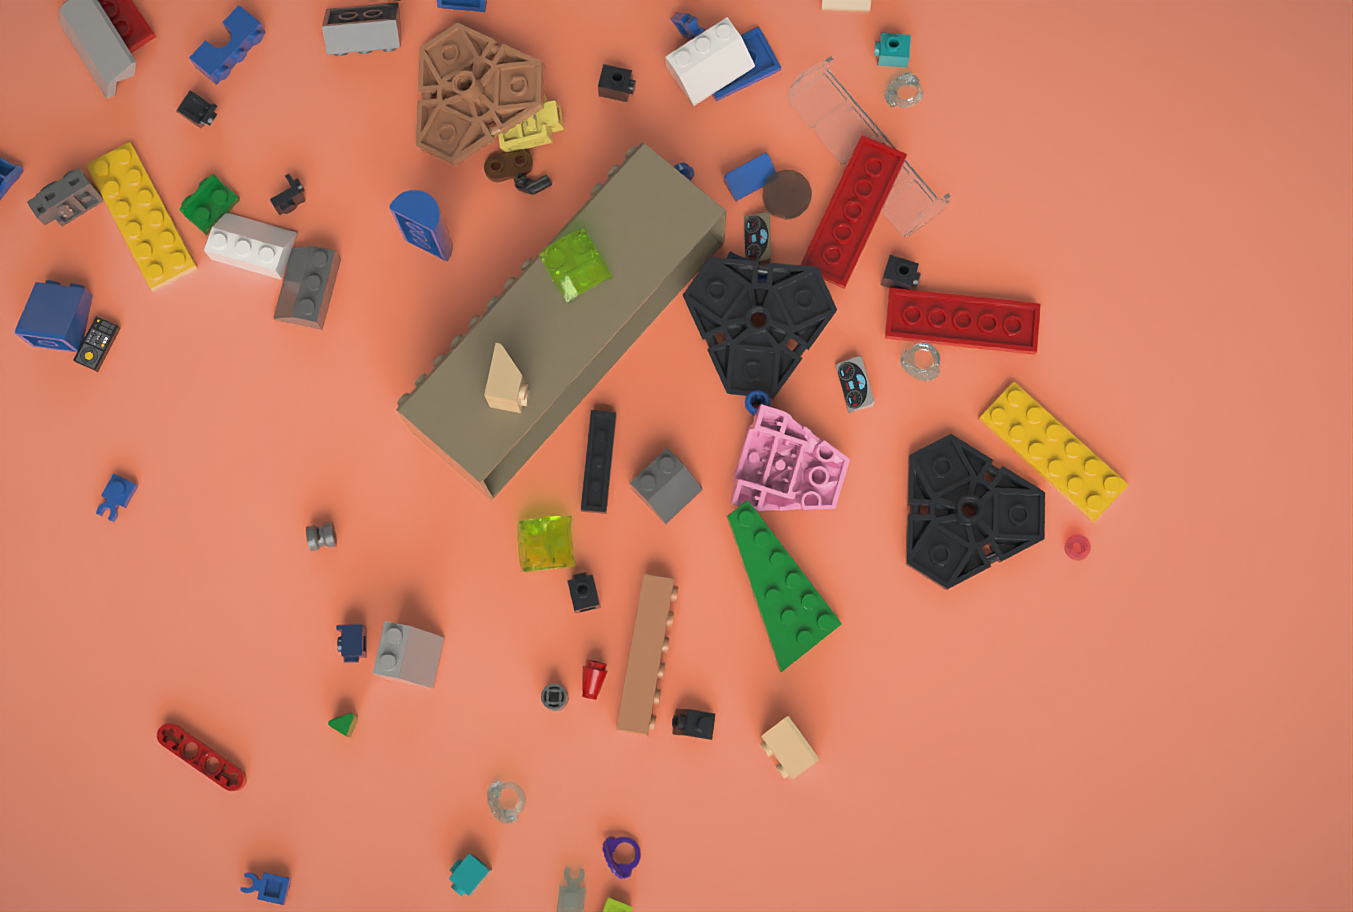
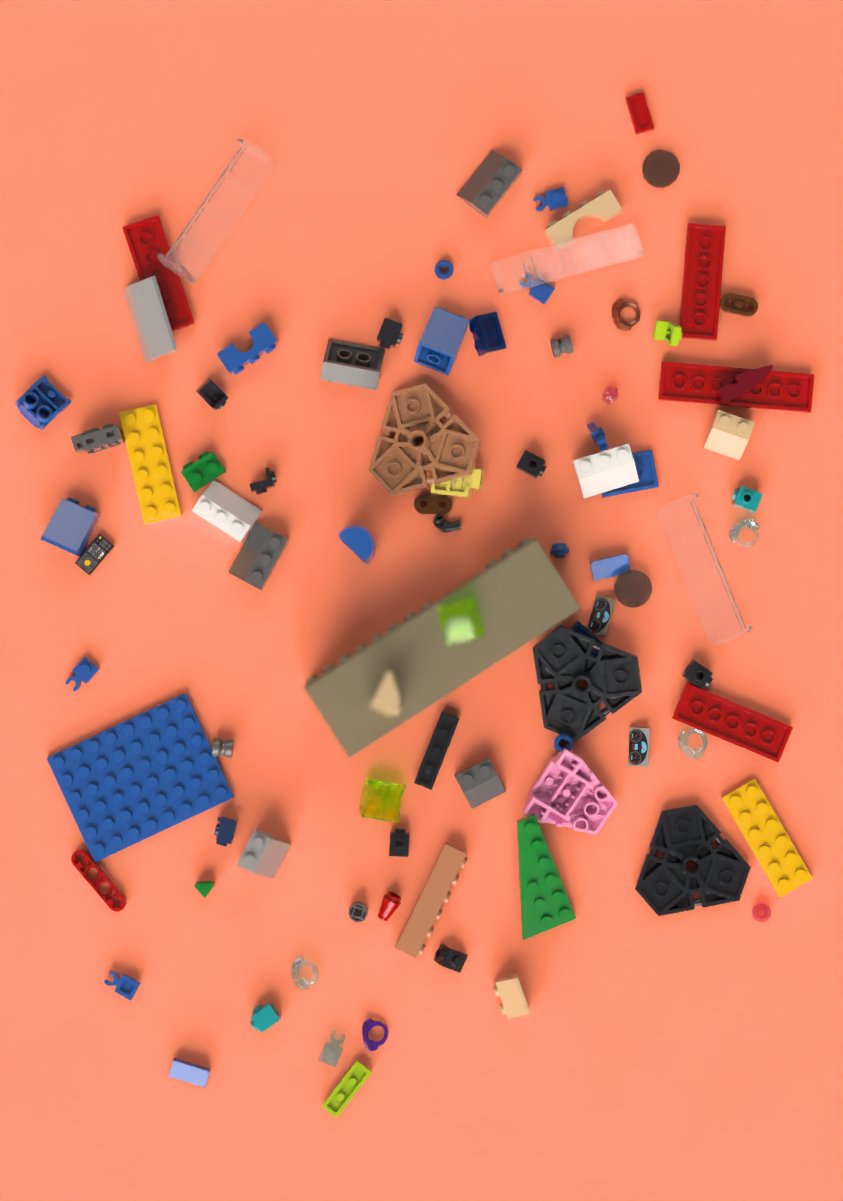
camera: 15 degrees right, 10 degrees up
(223, 608) = (140, 777): none -> blue plate
(854, 210) = (677, 616): red plate -> none

